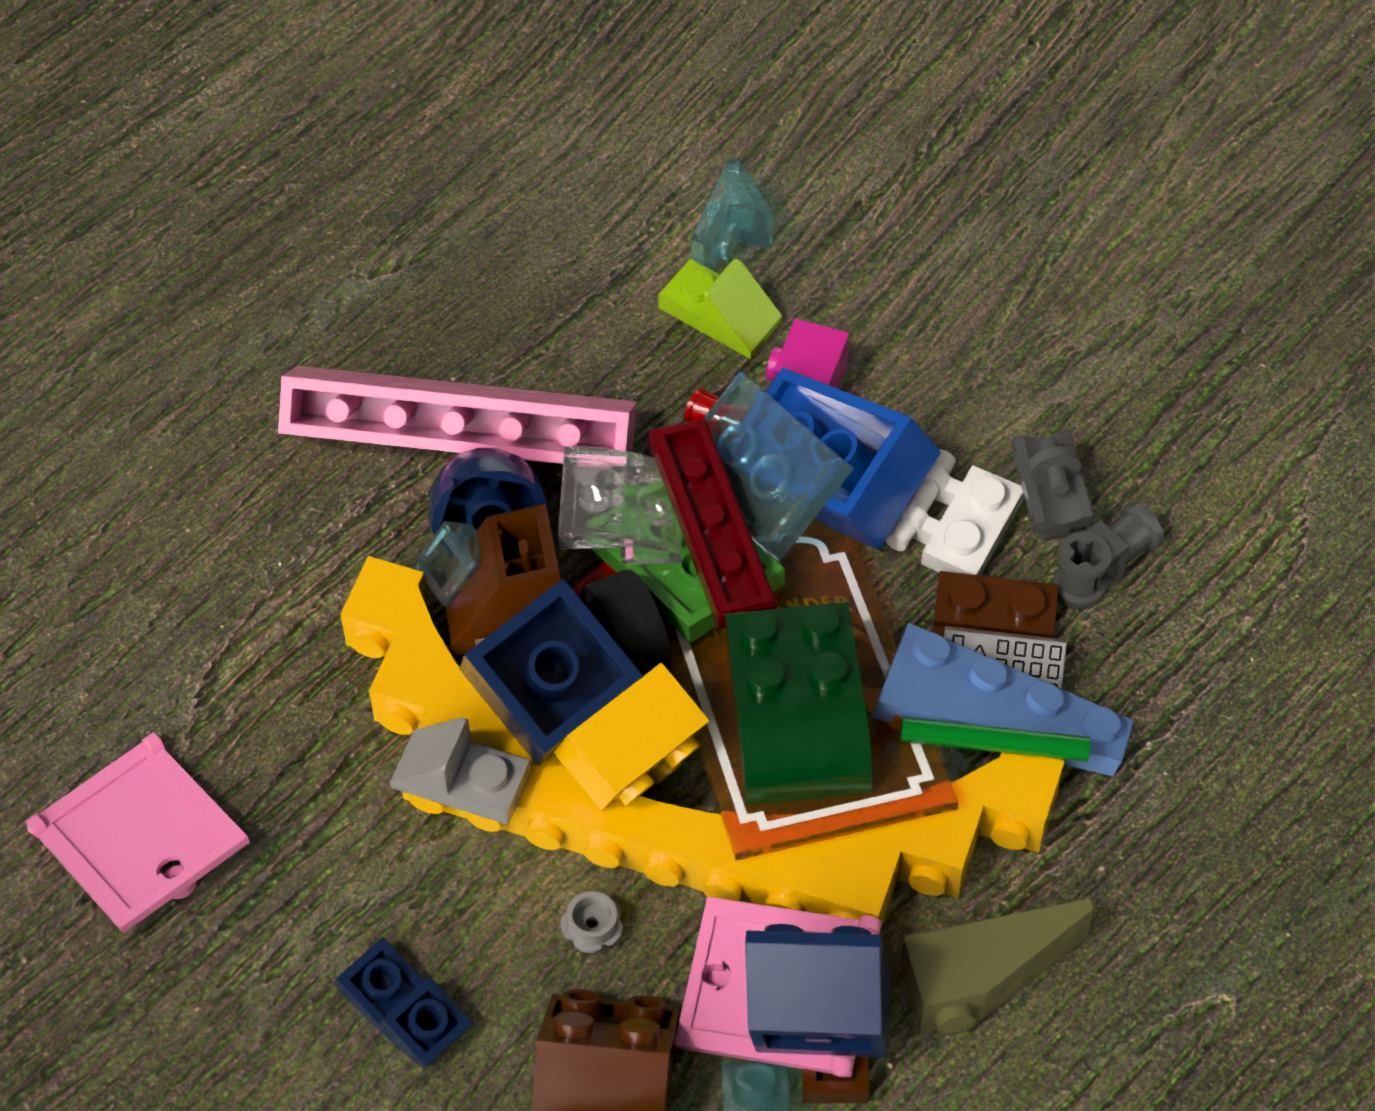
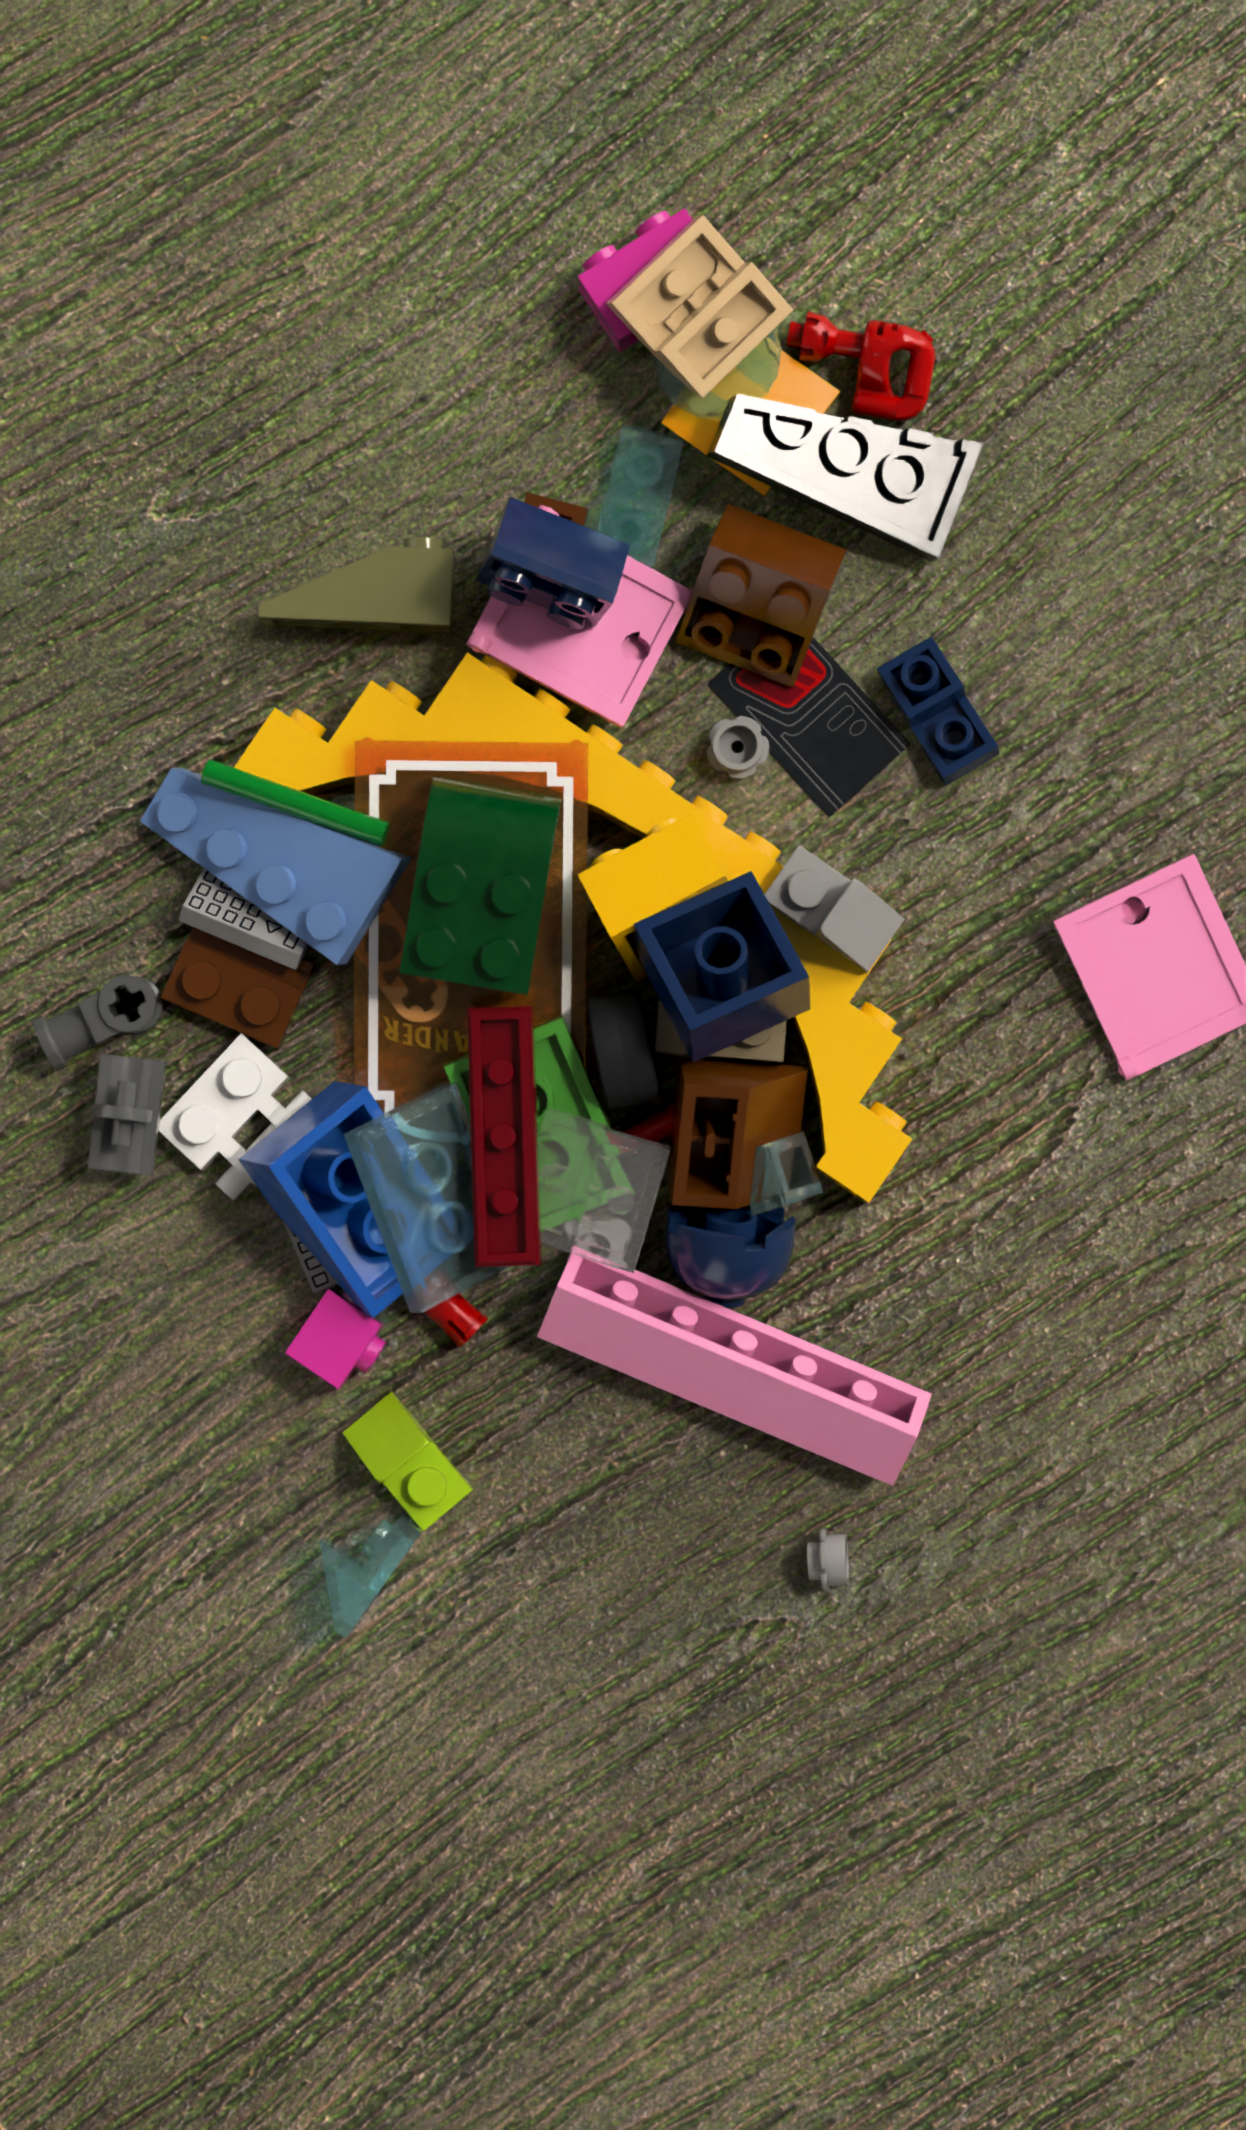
camera: 160 degrees left, 30 degrees up
(340, 314) = (828, 1560): none -> light grey plate
(515, 964) = (819, 729): none -> black sticker

